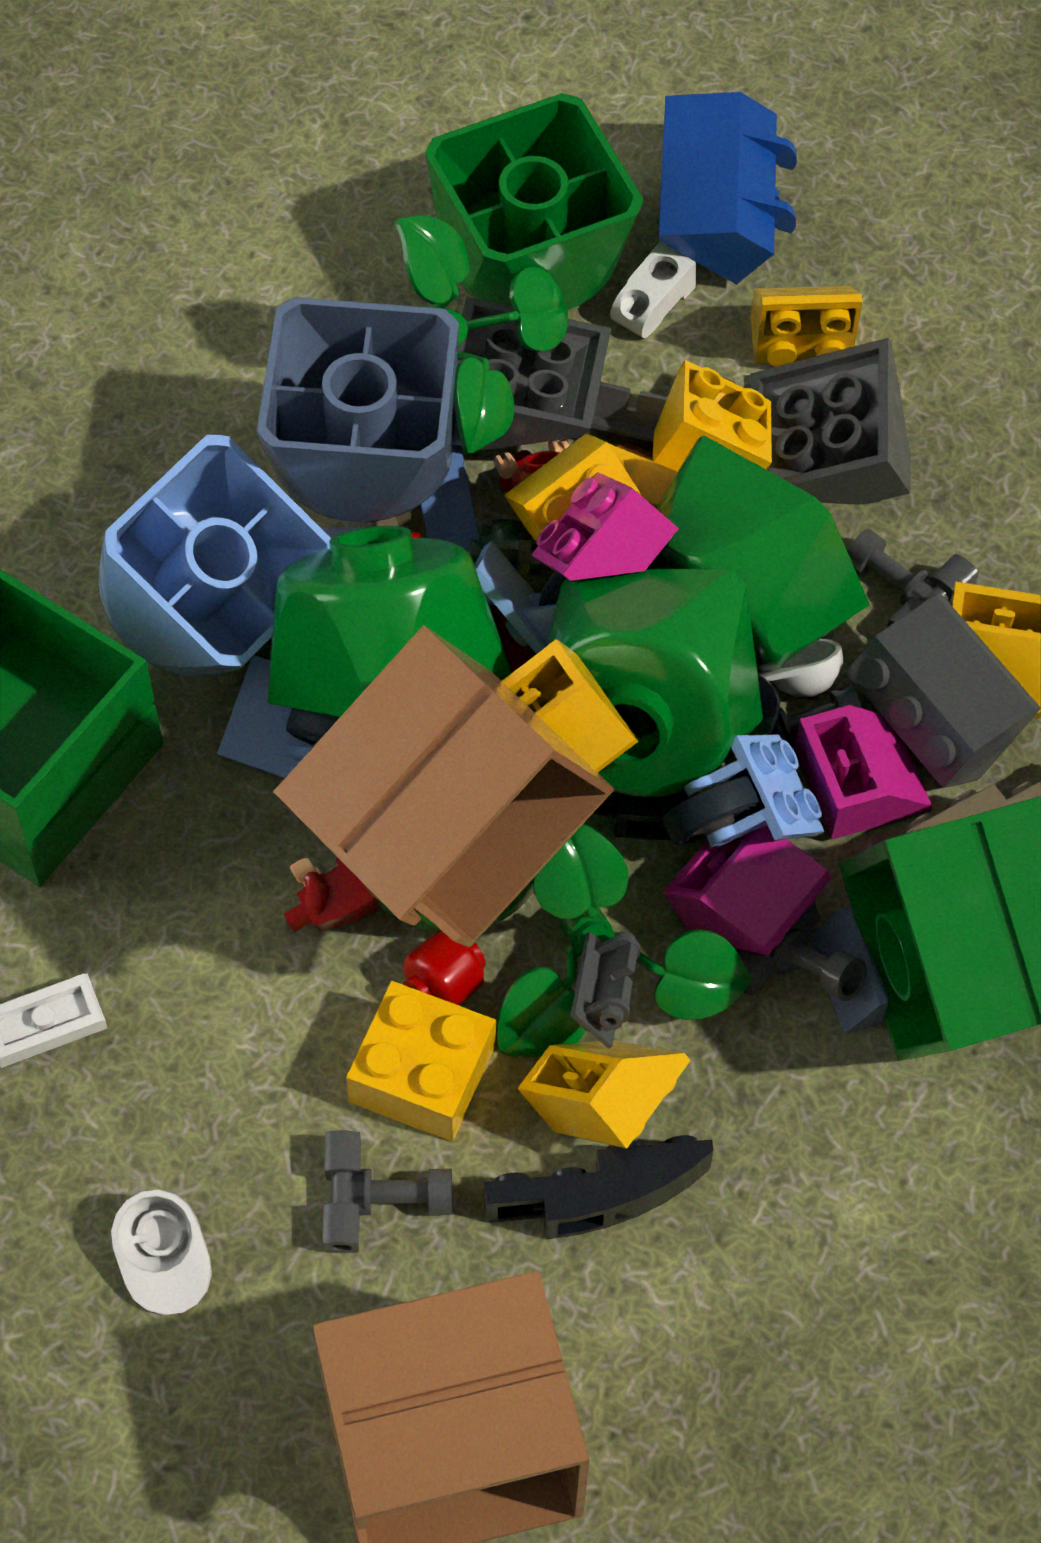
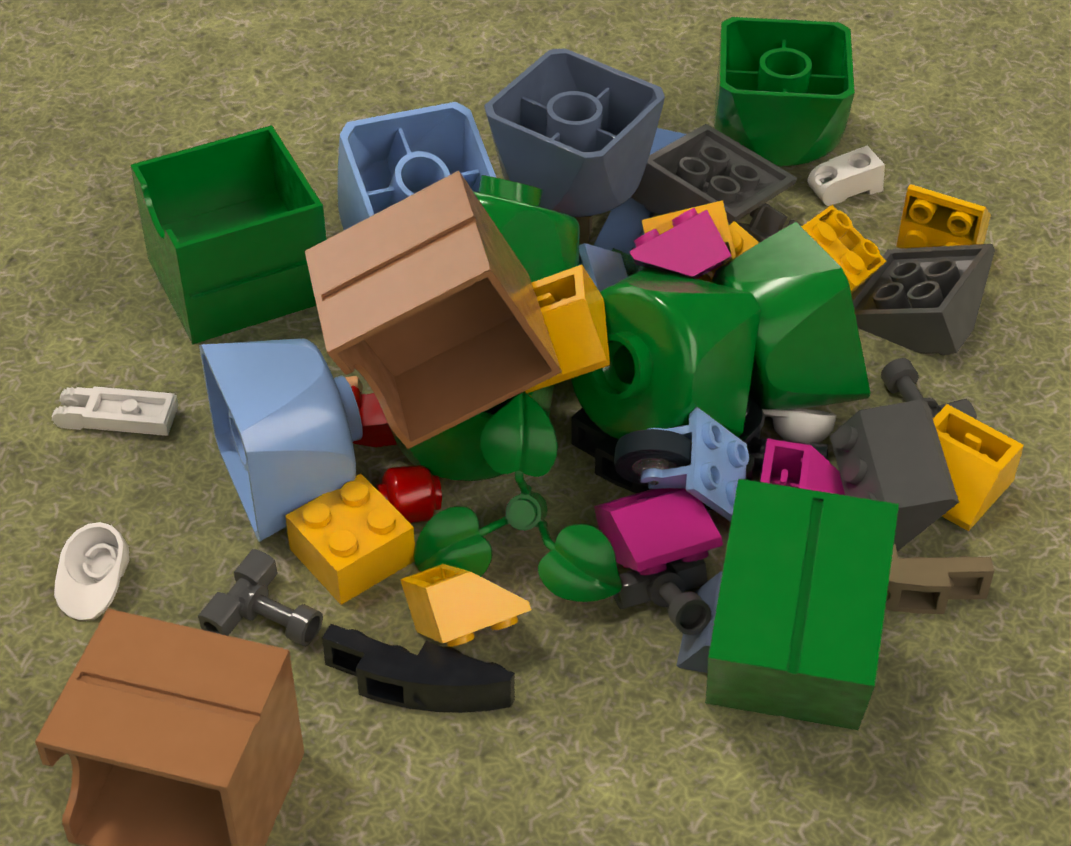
camera: 30 degrees right, 15 degrees down
(275, 975) = (280, 425): none -> light blue piece
(435, 264) = (661, 165): green plant -> none
(603, 984) = (503, 537): dark grey hinge -> none
(722, 180) = (935, 127): blue piece -> none

